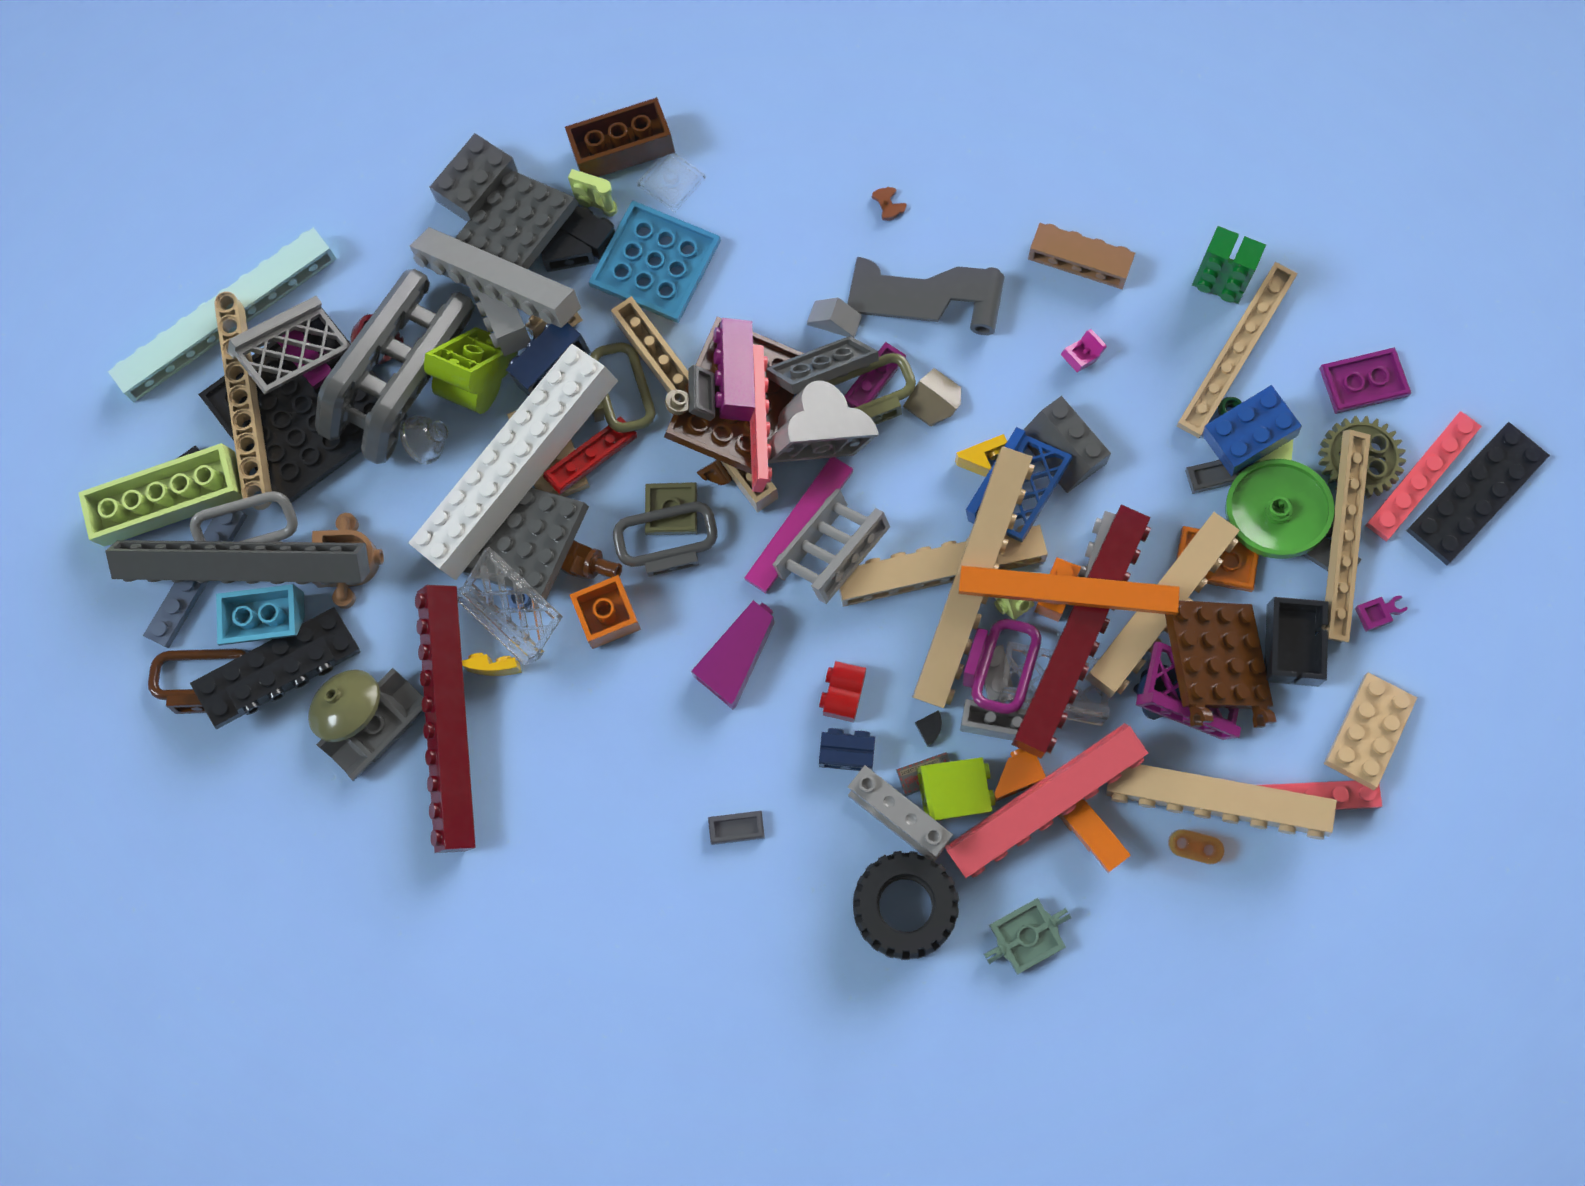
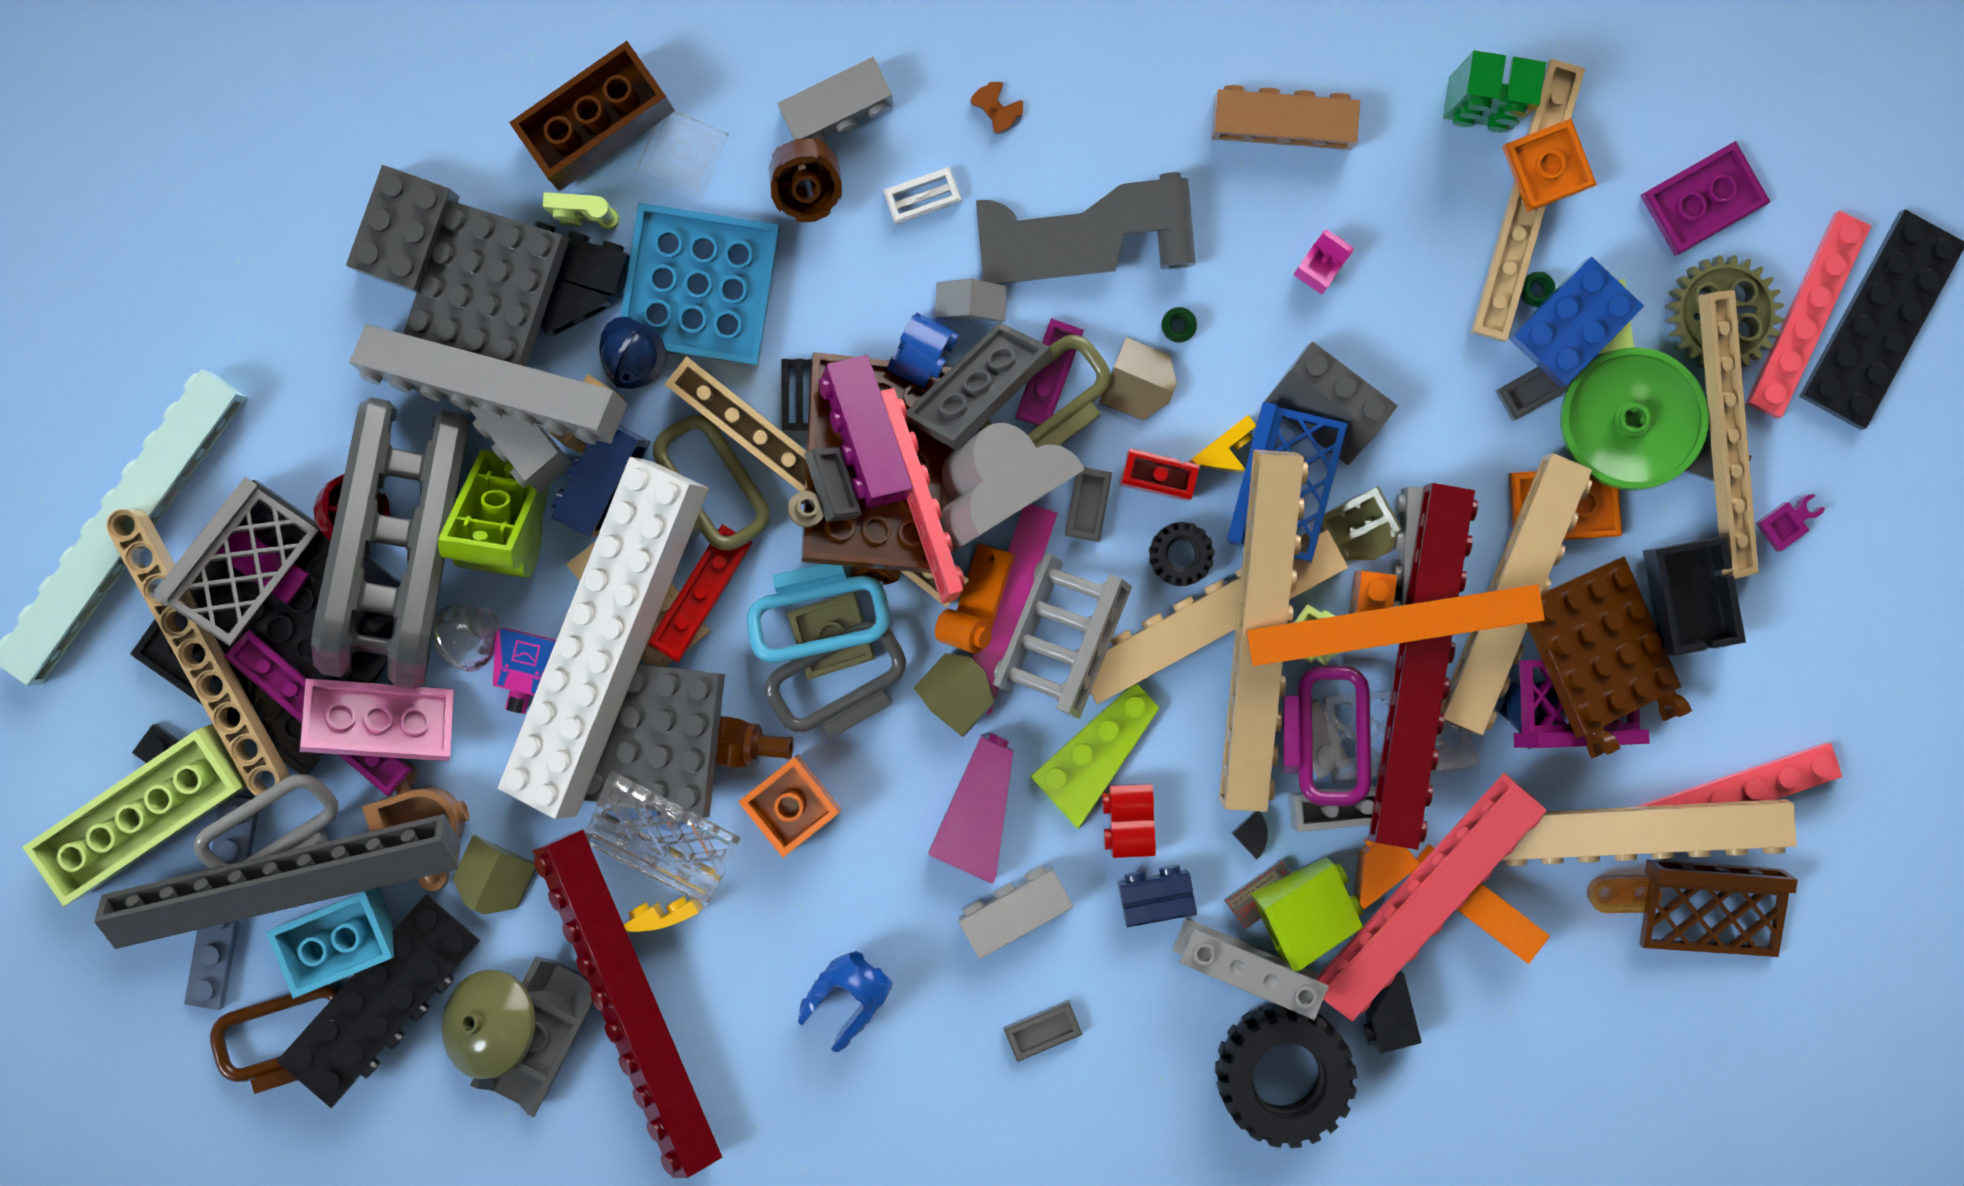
camera: 25 degrees left, 15 degrees up
(307, 464) = (287, 688): none -> magenta tile
(343, 475) = (376, 720): none -> bright pink plate
(384, 609) = (492, 877): none -> olive slope
(450, 467) = (520, 665): none -> torso
(597, 290) = (631, 353): none -> dark blue helmet
(621, 755) = (858, 977): none -> blue piece
(666, 468) = (813, 584): none -> medium azure bar
(690, 346) = (785, 393): none -> black tile
(735, 219) = (805, 161): none -> reddish brown brick
(741, 732) = (1014, 910): none -> light grey brick
(747, 568) = (956, 692): none -> olive slope
(774, 522) = (973, 621): none -> orange door
(781, 172) = (837, 102): none -> light grey brick
(791, 335) = (921, 350): none -> blue cylinder
(821, 249) = (925, 209): none -> white tile
(831, 640) = (1091, 758): none -> lime wing
(876, 470) = (1088, 504): none -> dark grey tile
(930, 458) = (1159, 475): none -> red brick
(932, 533) = (1203, 554): none -> black tyre
(972, 362) = (1184, 315): none -> dark green plate
(997, 888) = (1392, 1018): none -> black slope
(1027, 936) = (1443, 1064): sand green plate -> none
(1066, 533) = (1363, 526): none -> olive slope
(1257, 327) = (1549, 165): none -> orange tile
(1274, 855) = (1713, 878): none -> reddish brown fence
(1370, 731) = (1809, 684): tan plate -> none

